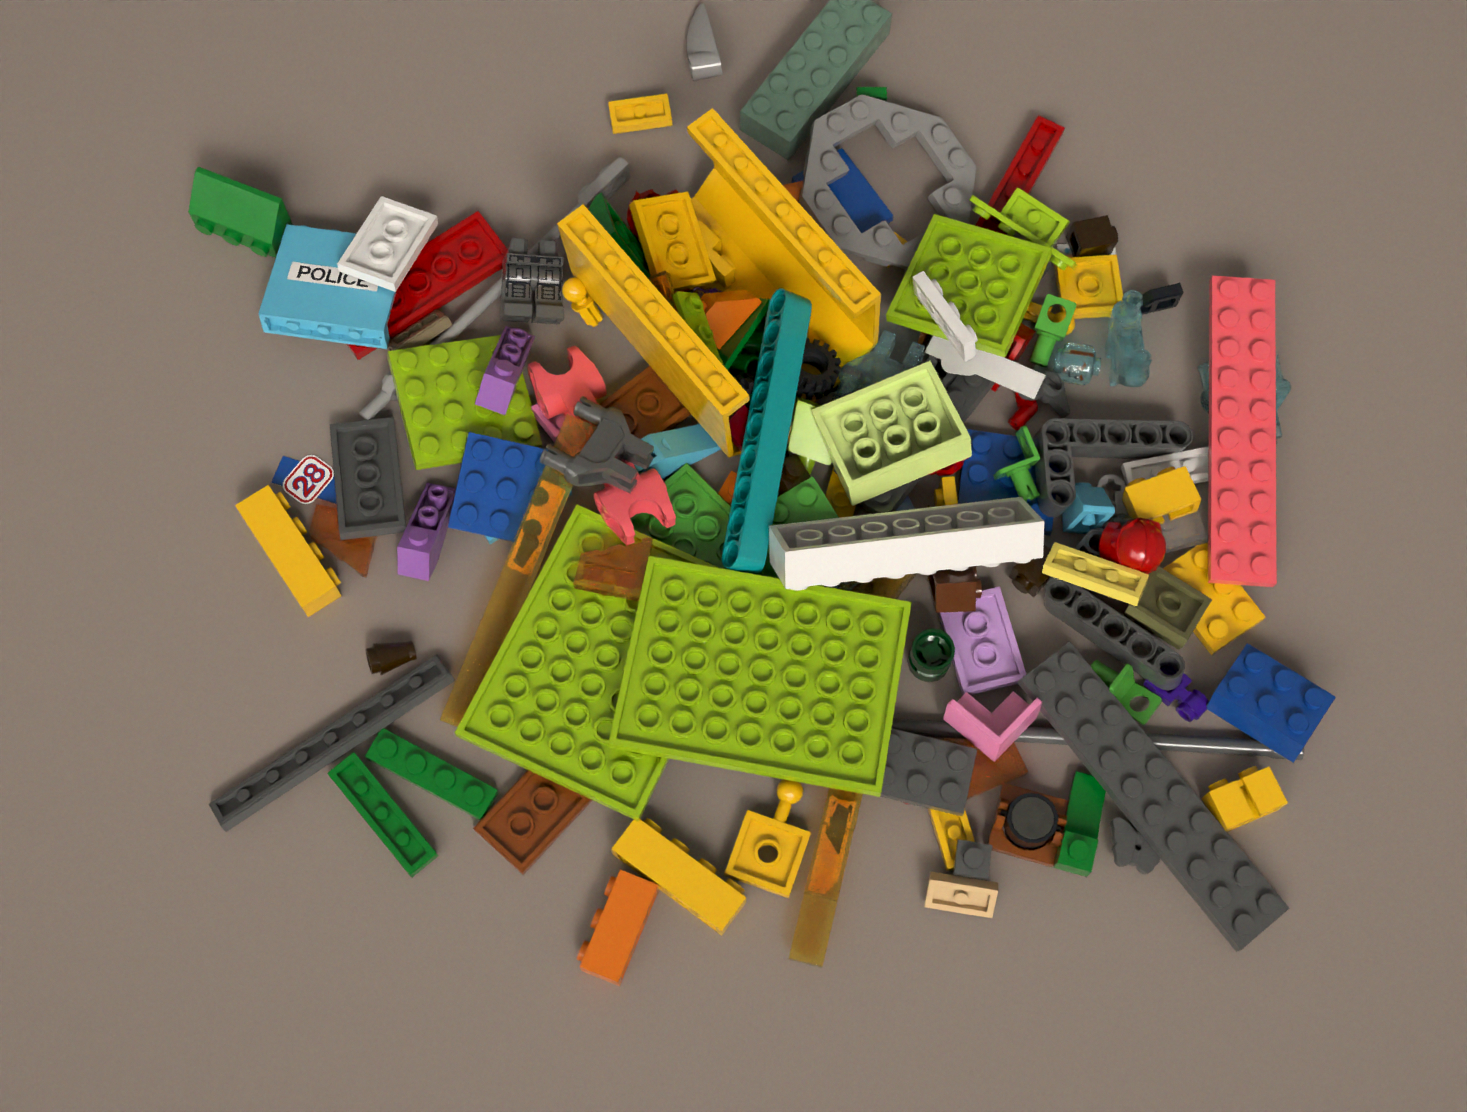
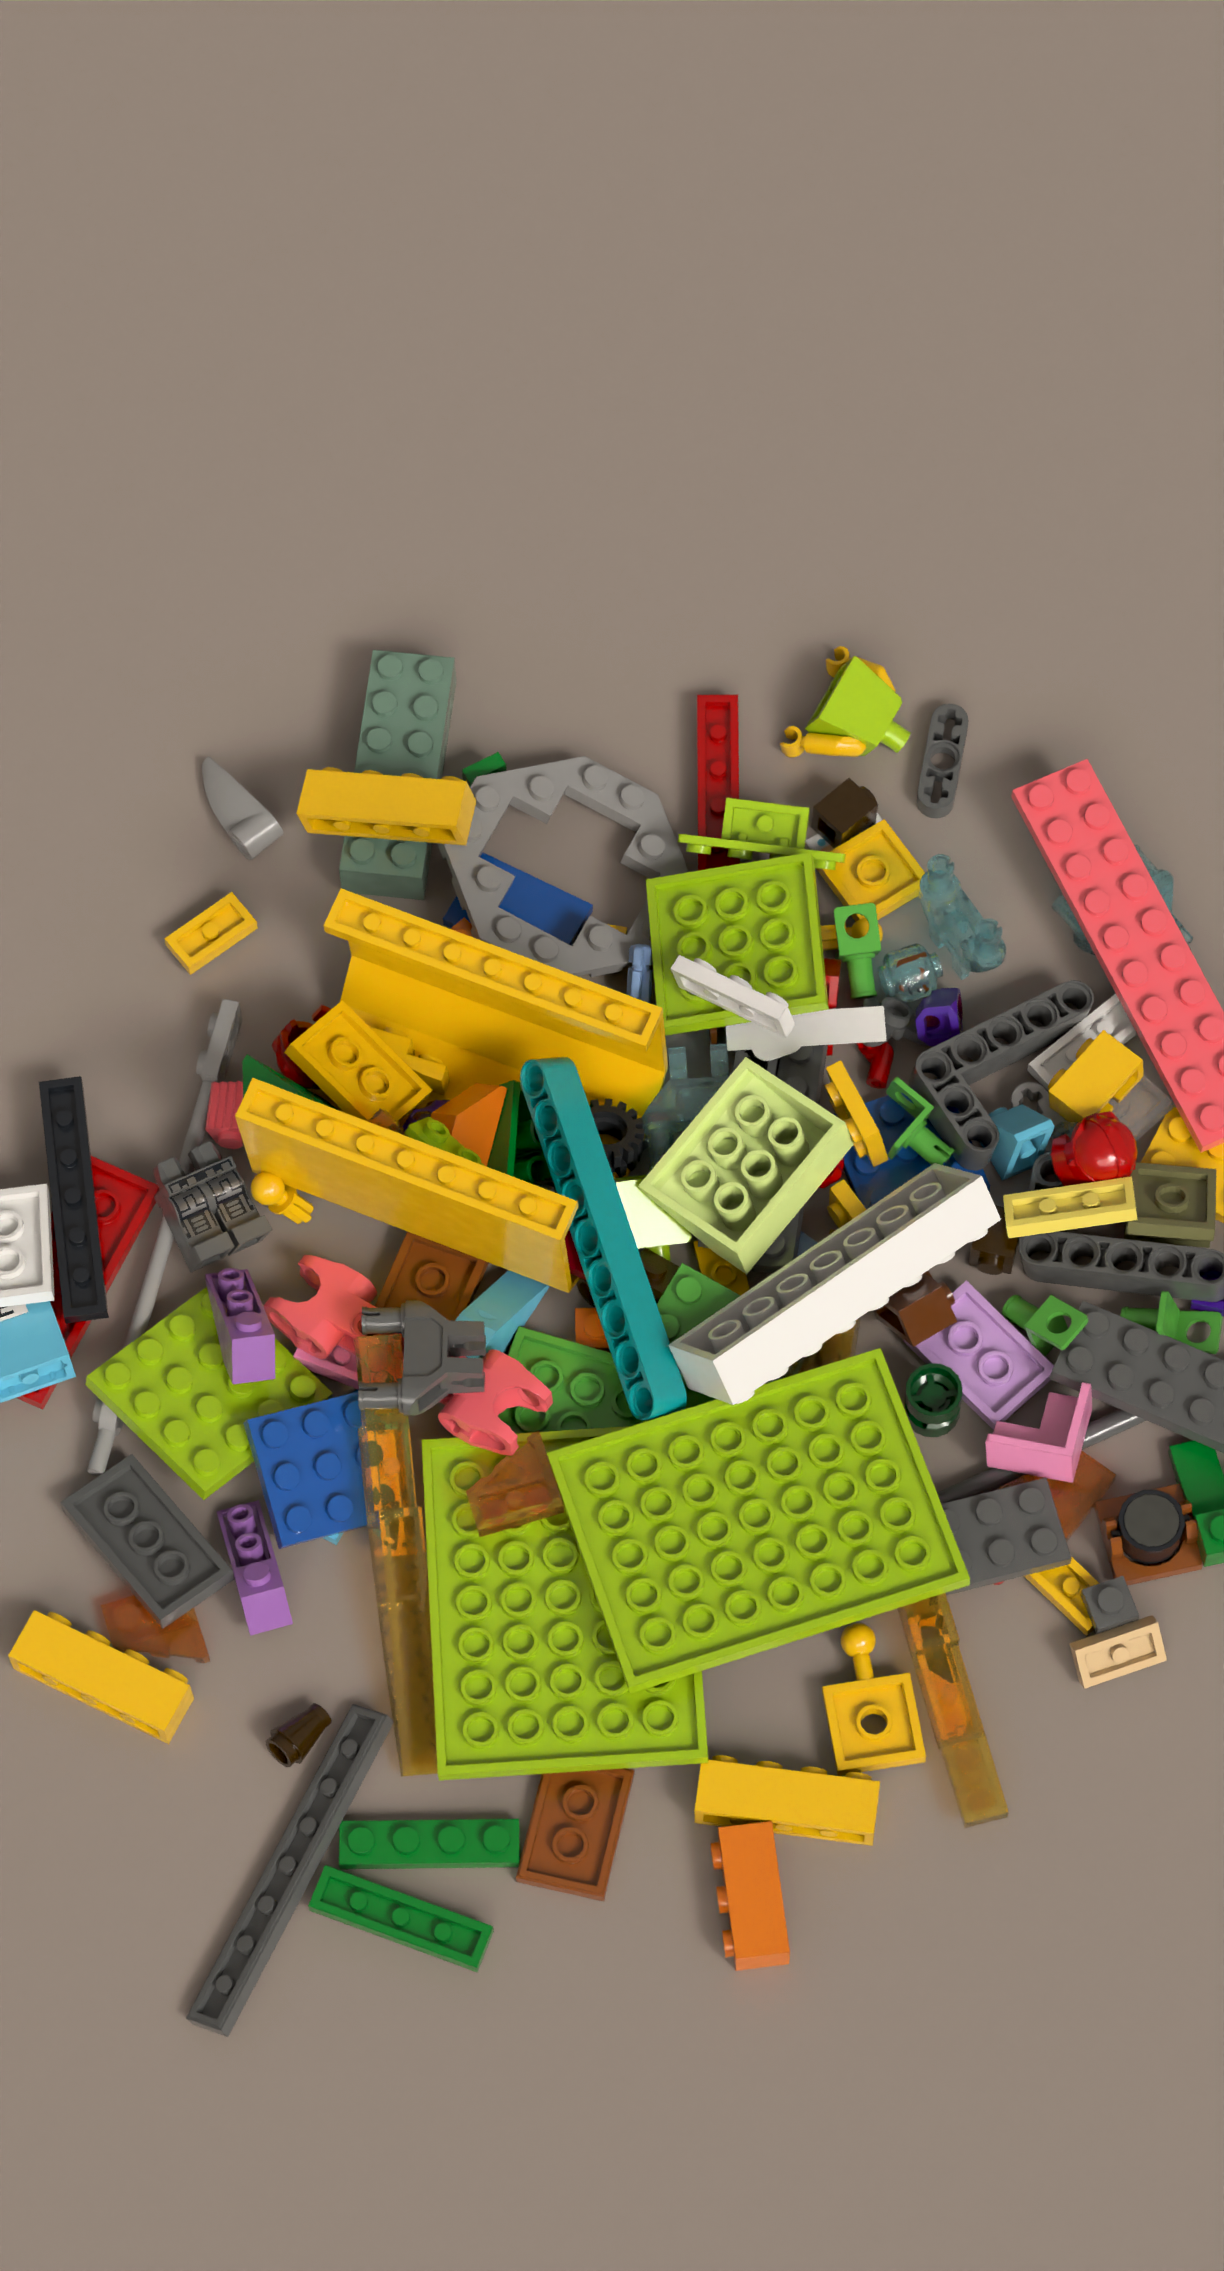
camera: 25 degrees left, 5 degrees down
(306, 479) = (69, 1583): sticker -> none
(421, 332) = (103, 1337): dark tan plate -> none
(450, 236) = (73, 1200): none -> black plate
(790, 82) = (386, 806): none -> yellow brick
(893, 279) = (639, 975): none -> light blue axle
(983, 436) = (852, 1110): none -> yellow plate
(1036, 644) = (1045, 1324): none -> bright green bracket
(1080, 401) = (939, 1016): none -> dark purple rock
(1133, 176) = (852, 713): none -> lime torso
(1161, 298) = (967, 843): black tile -> none
(1180, 224) = (949, 776): none -> dark grey beam

